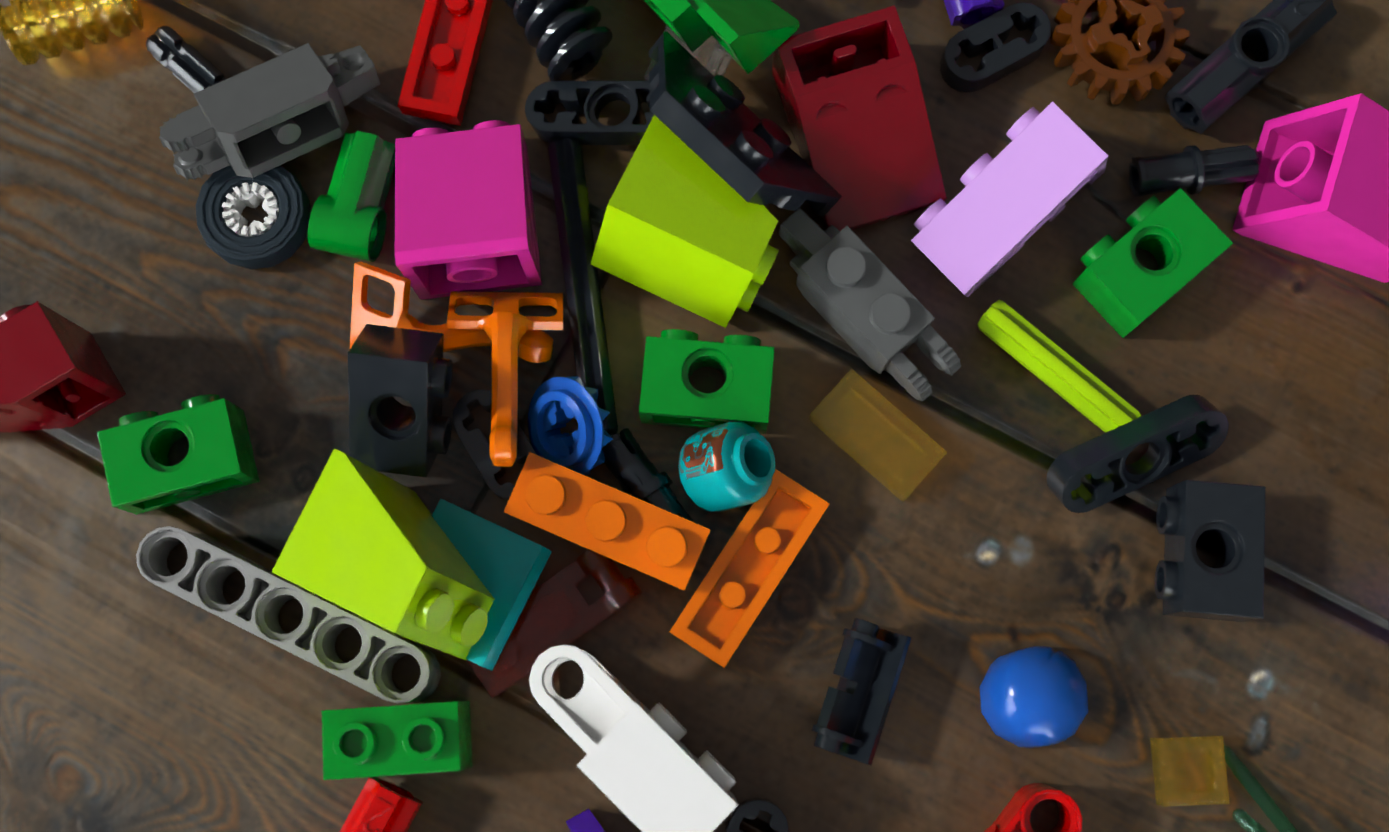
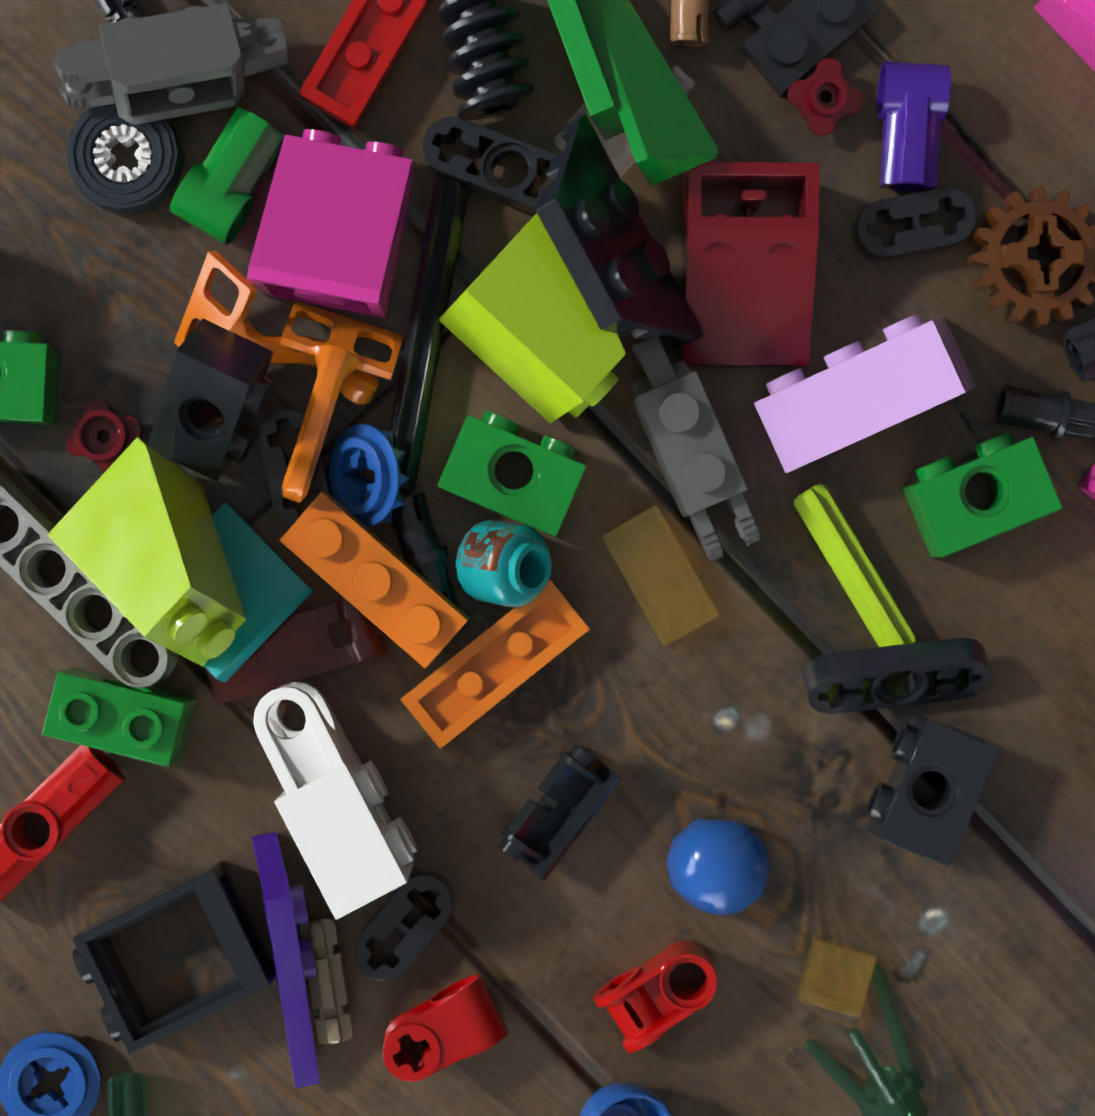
camera: 20 degrees right, 10 degrees up
(292, 462) = (96, 418): none -> dark red plate

